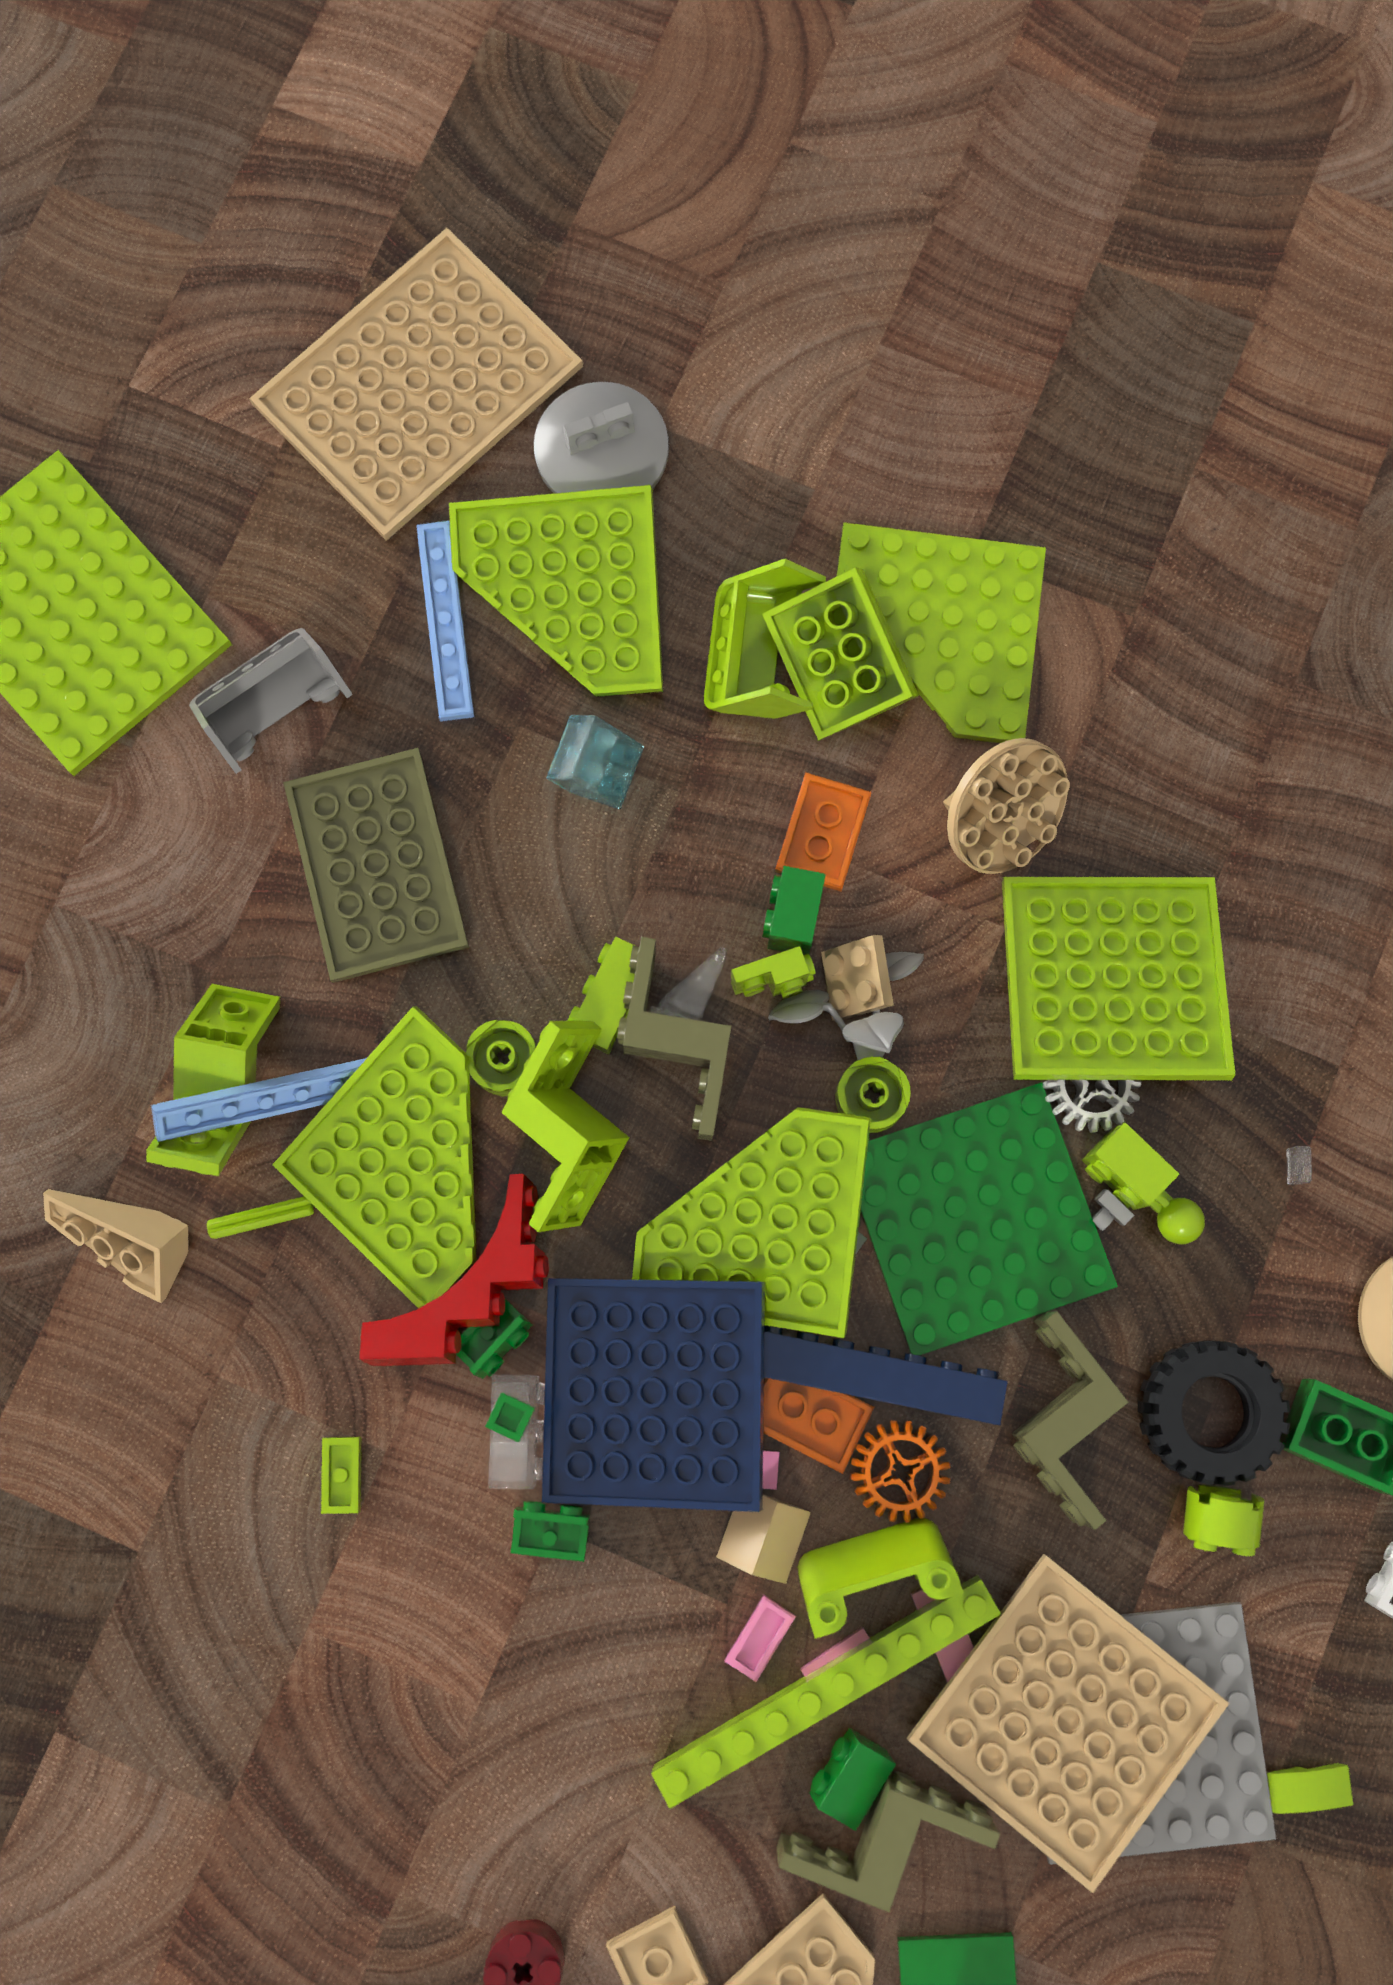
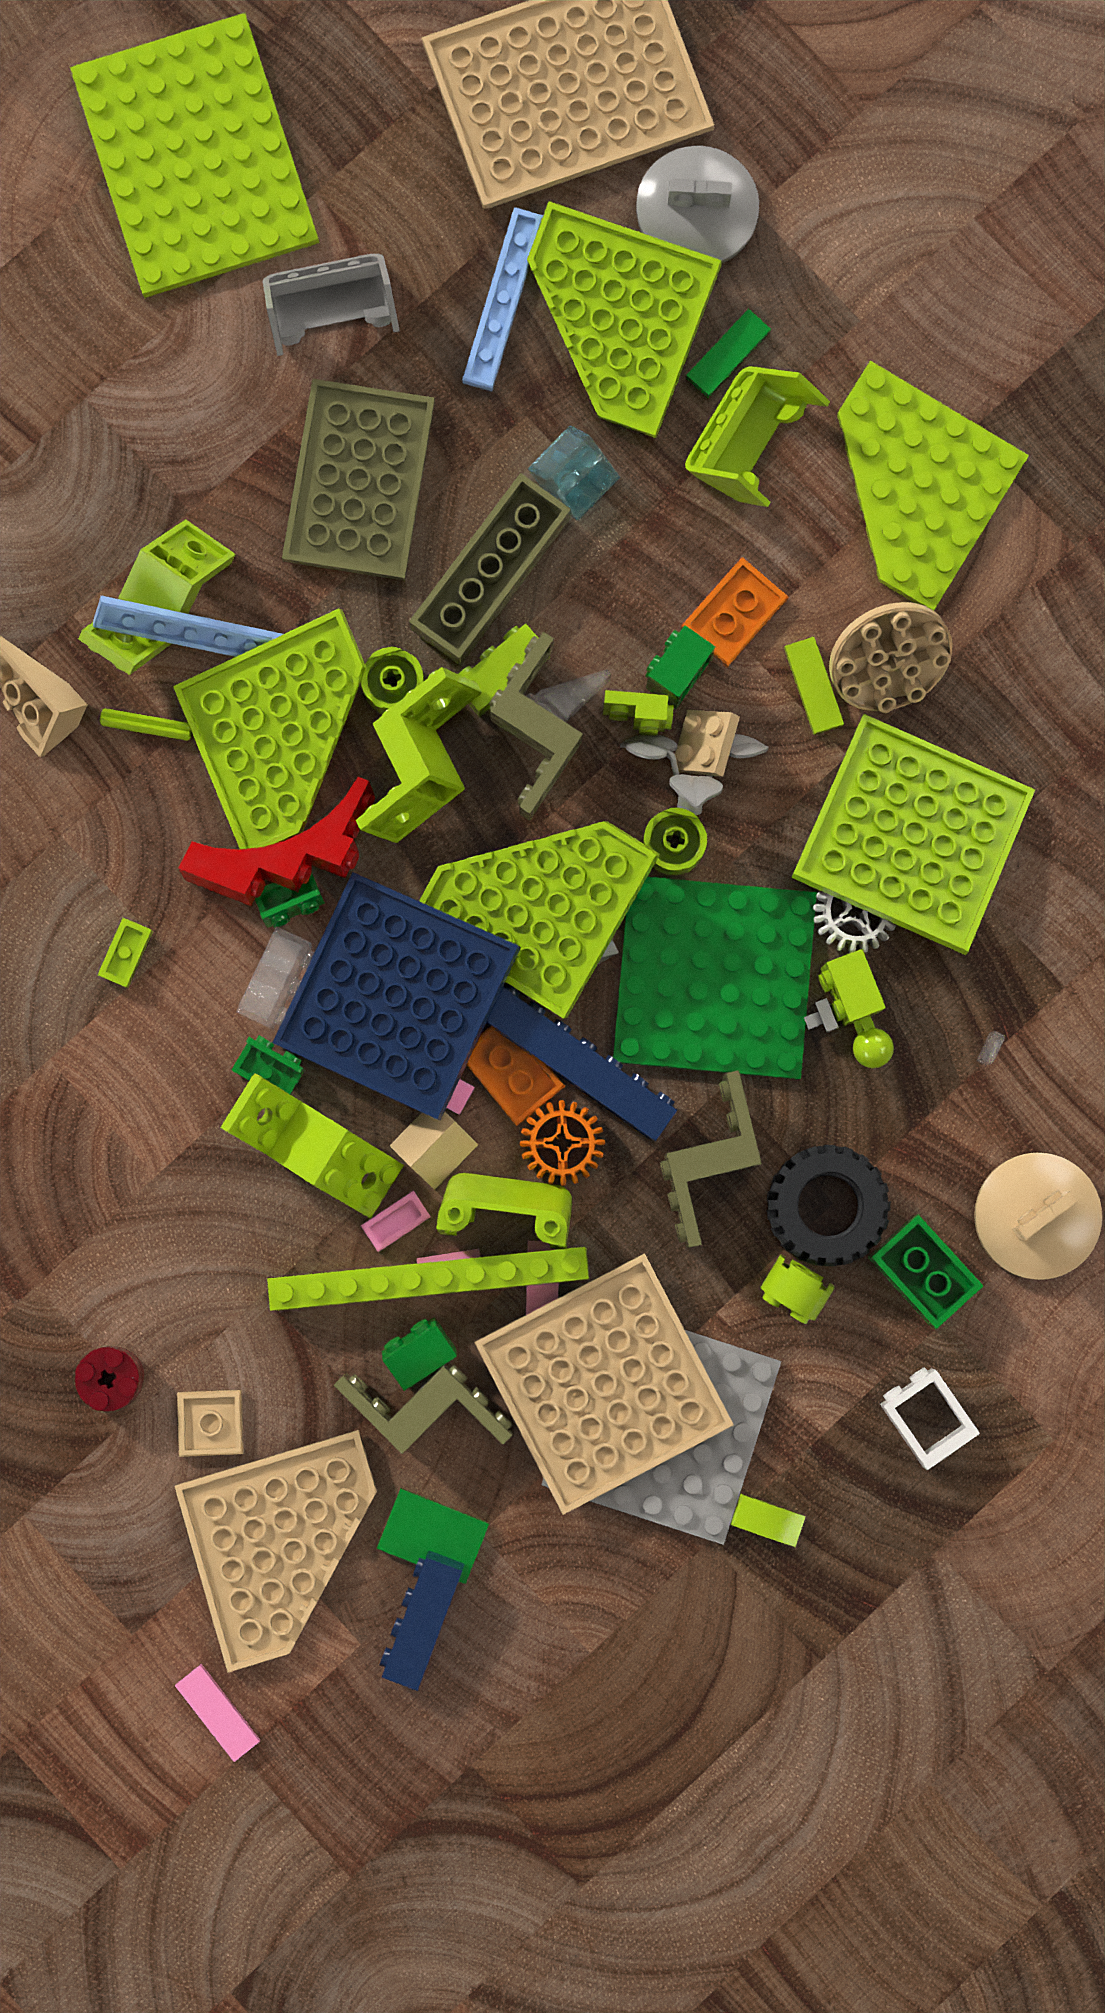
camera: 20 degrees right, 5 degrees up
(510, 1417) = (276, 963): green plate -> none
(553, 897) = (490, 569): none -> olive brick
(635, 1601) = (312, 1146): none -> lime bracket
(697, 576) = (728, 353): none -> green tile
(840, 653) = (815, 470): lime slope -> none
(938, 871) = (813, 685): none -> lime tile

